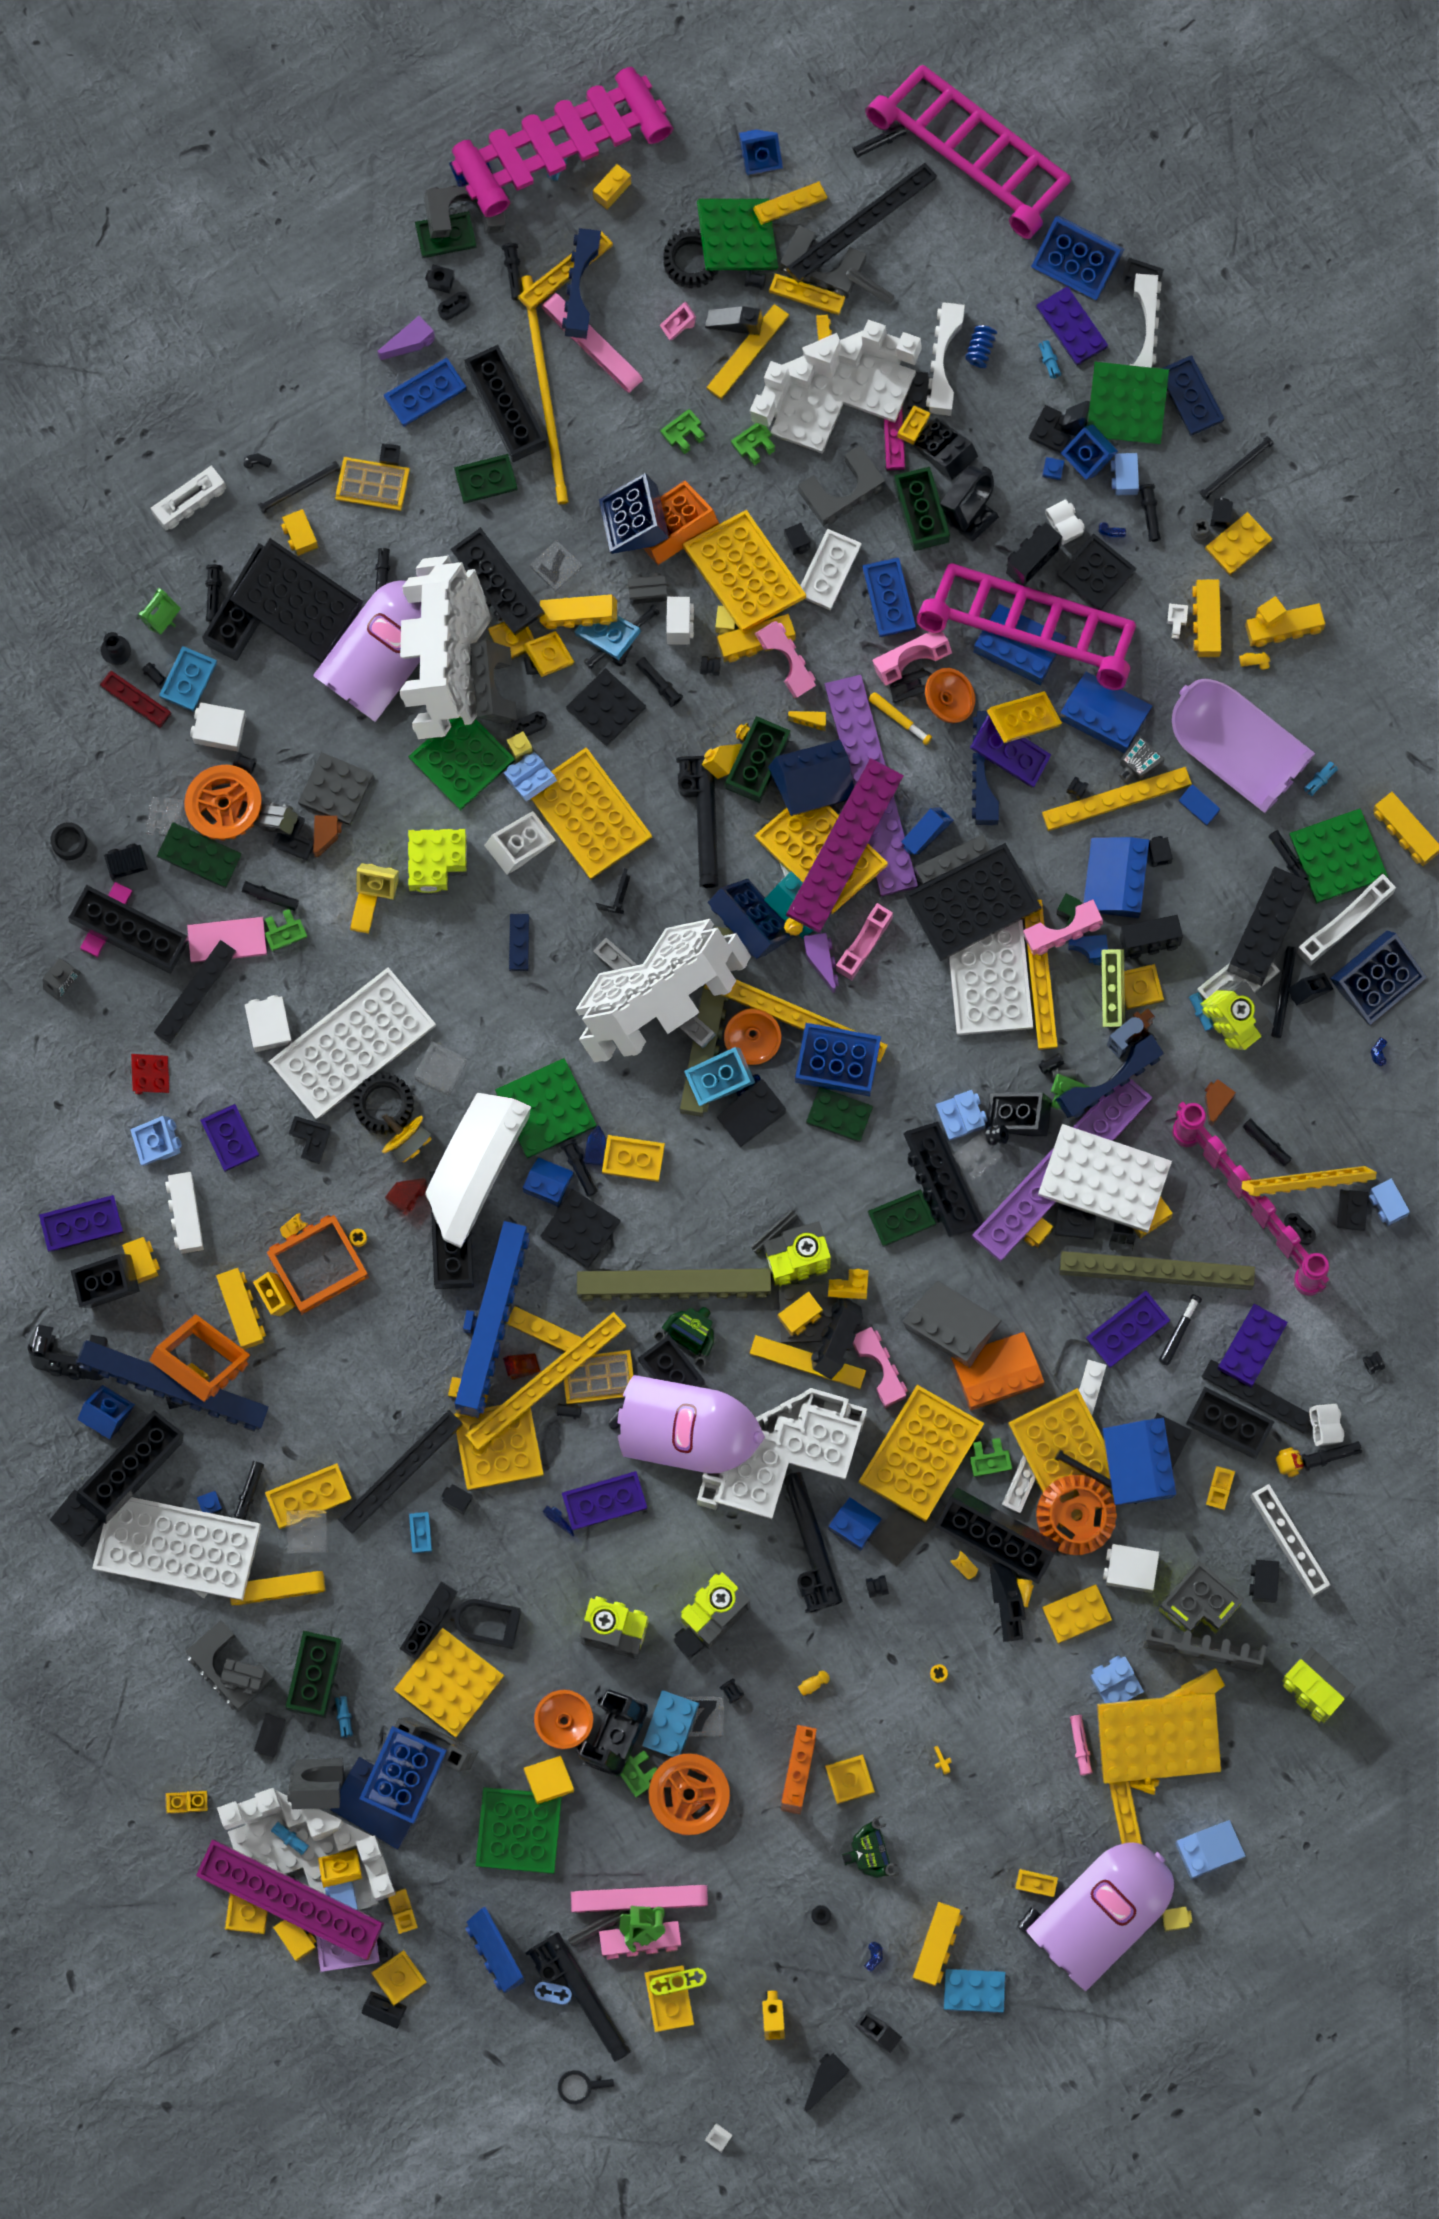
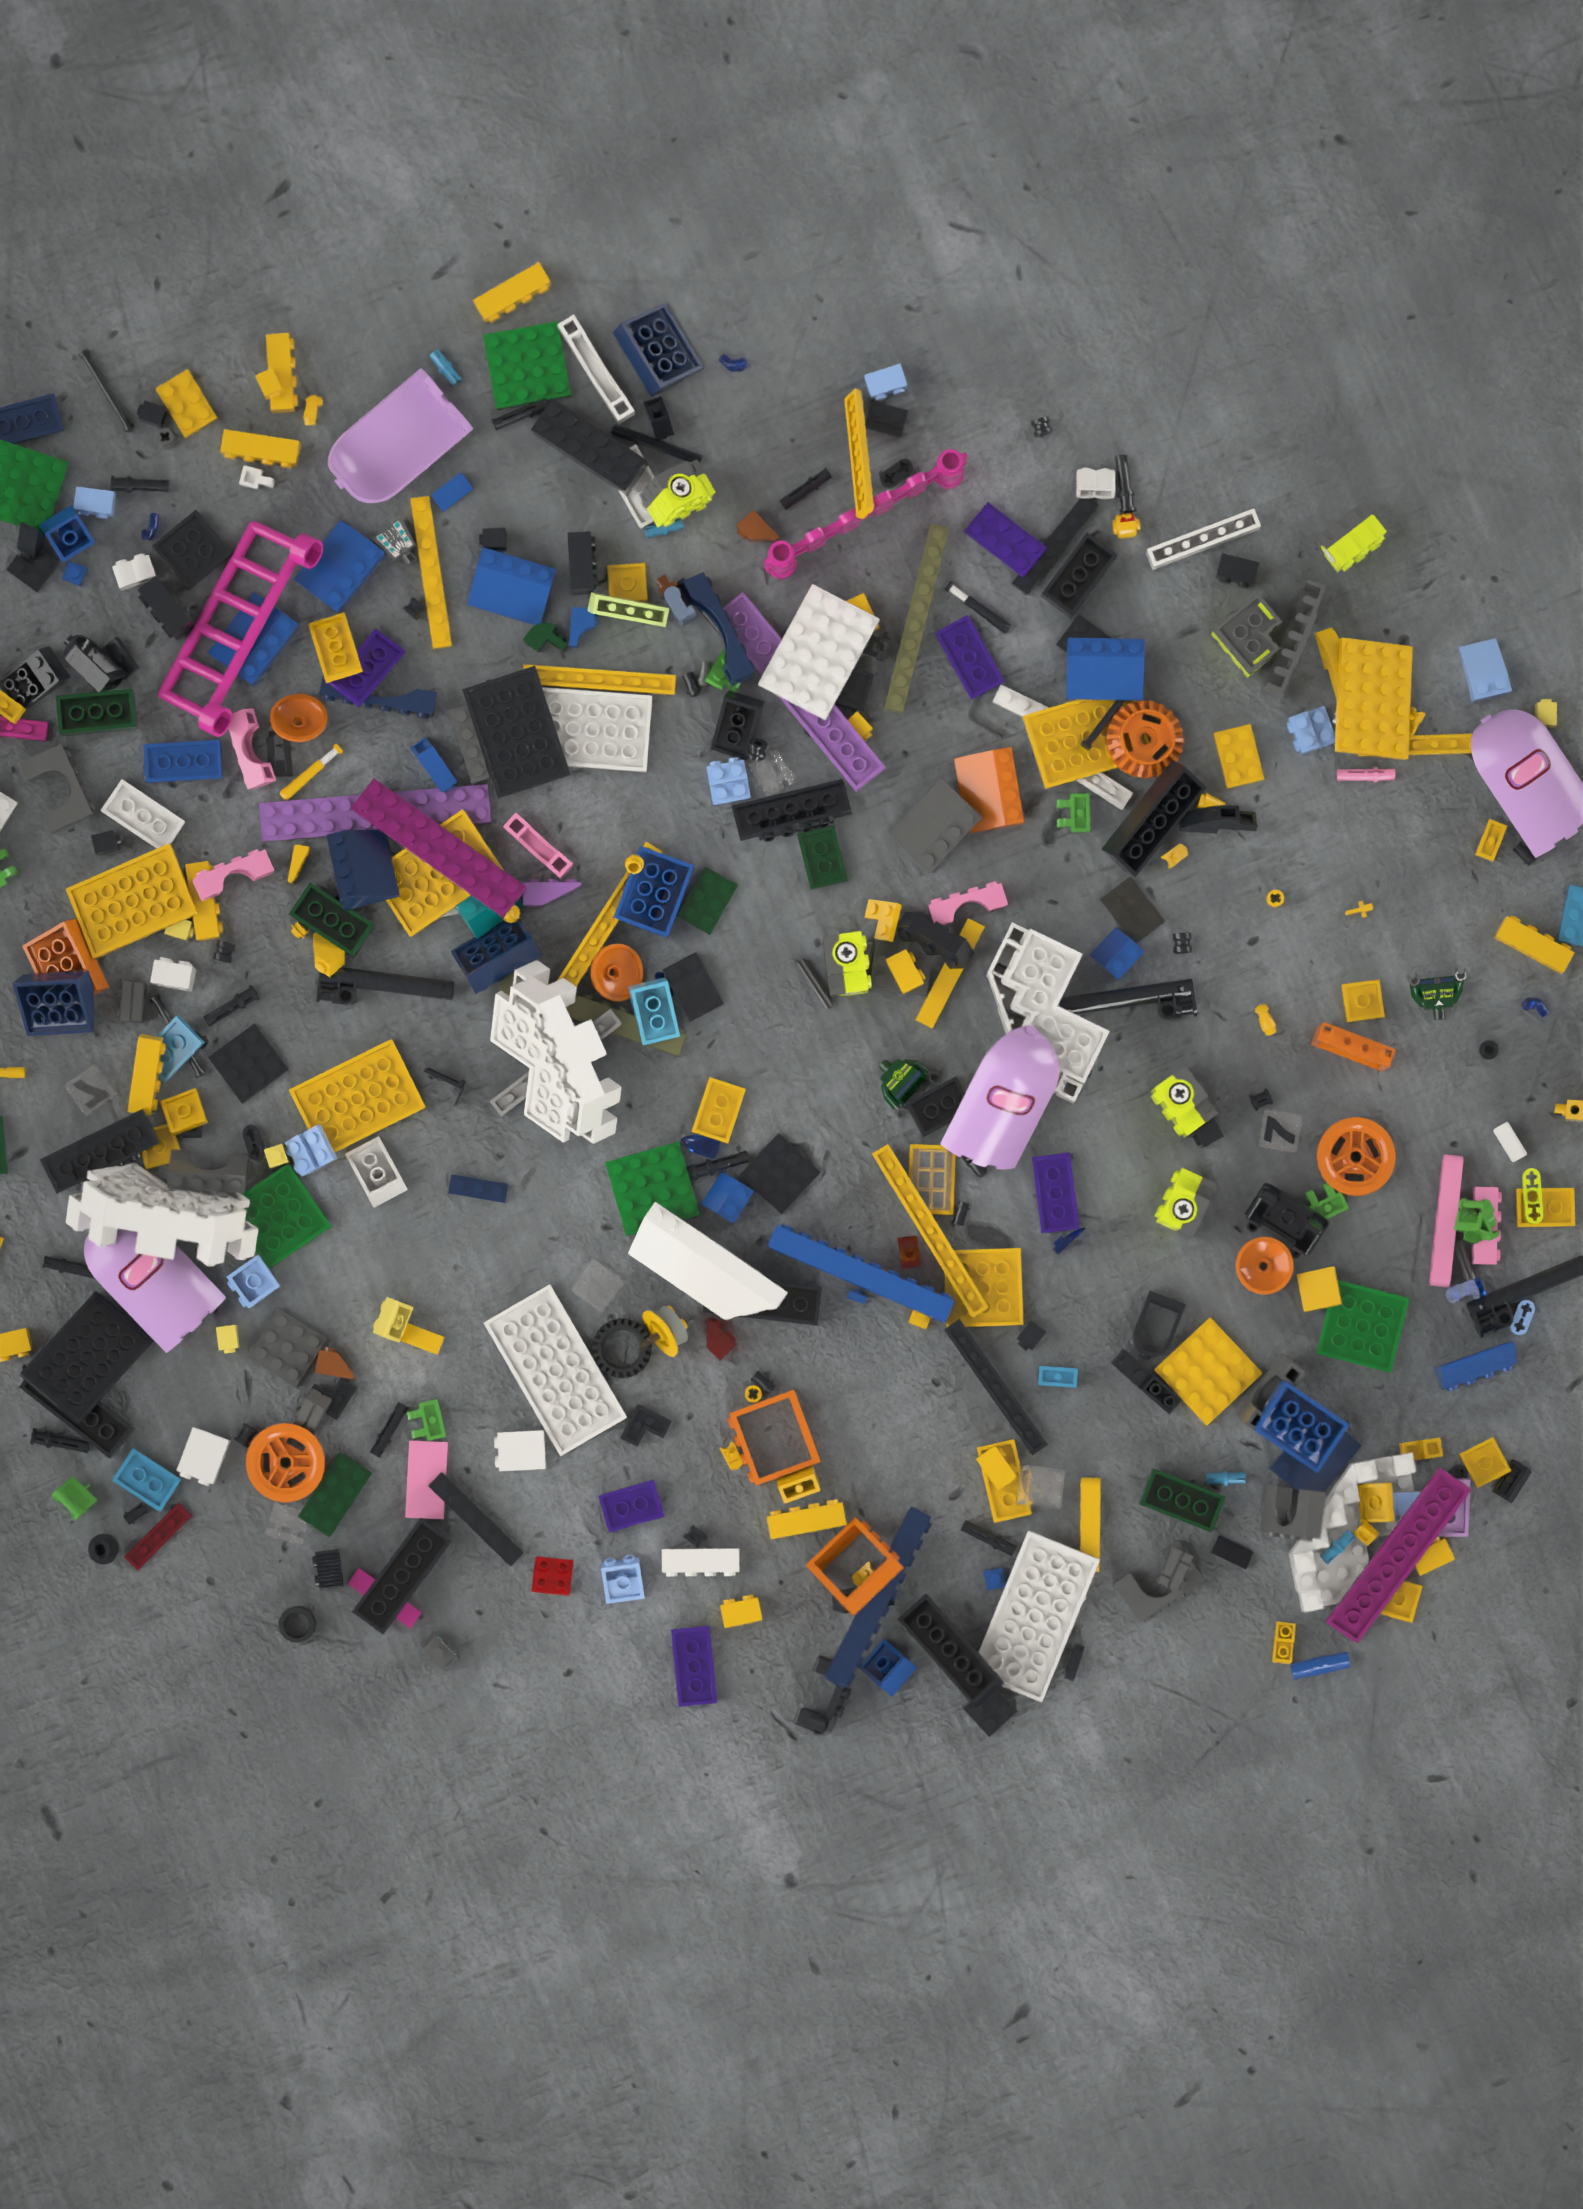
camera: 85 degrees left, 10 degrees up
(105, 1281) = (759, 1649): black brick -> none
(137, 1594) = (1074, 1662): none -> black beam
(168, 1842) = (1320, 1665): none -> blue axle
(208, 1203) = (695, 1536): none -> black wheel
(308, 1864) = (1366, 1533): none -> yellow plate
(319, 1484) = (996, 1467): none -> yellow brick
(335, 731) = (228, 1338): none -> light yellow brick
(370, 1245) = (763, 1382): none -> black pin
(393, 744) = (252, 1282): none -> light blue plate
(434, 858) = (380, 1260): neon yellow piece -> none
(542, 1329) = (876, 1225): yellow plate -> none
(567, 1922) = (1460, 1291): none -> clear blue leg
(670, 1724) = (1284, 1163): dark azure plate -> none
(673, 1283) = (851, 1090): olive brick -> none
(730, 1952) = (1510, 1142): none -> white slope
(861, 1031) = (634, 864): none -> yellow plate
(921, 1453) = (1059, 878): yellow plate -> none
(1042, 938) = (566, 671): bright pink arch -> none
(1131, 1568) = (1204, 696): white brick -> none
(1220, 1487) = (1138, 597): yellow slope -> none

